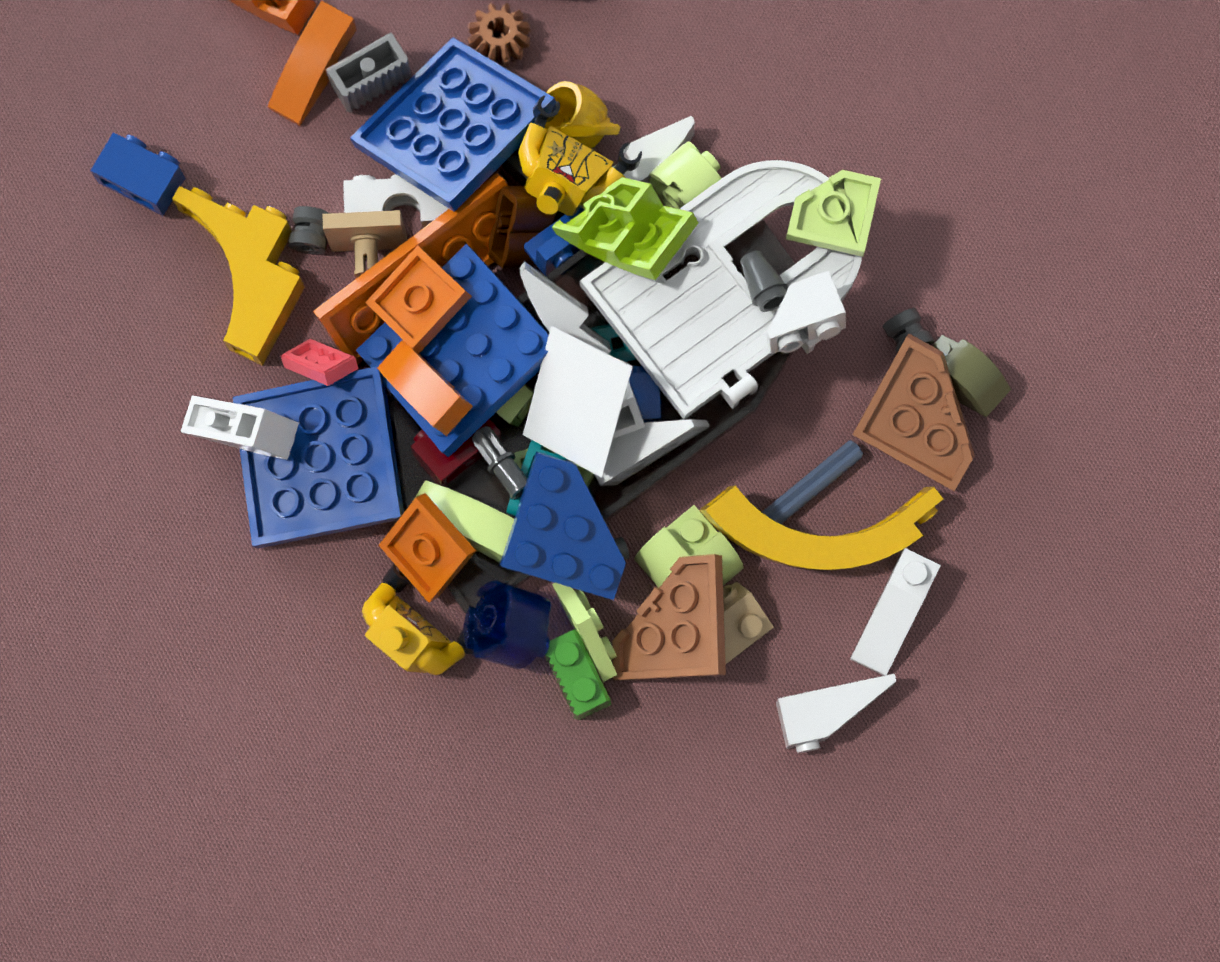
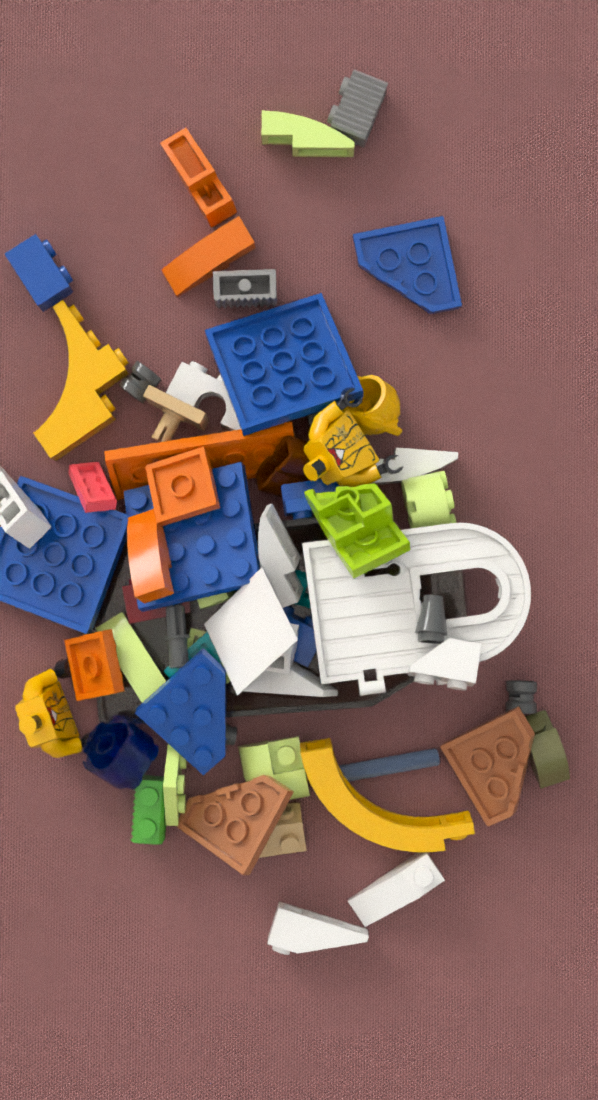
camera: 30 degrees right, 10 degrees up
(499, 21) = (355, 298): nougat gear -> none
(836, 213) = (514, 599): yellowish green plate -> none

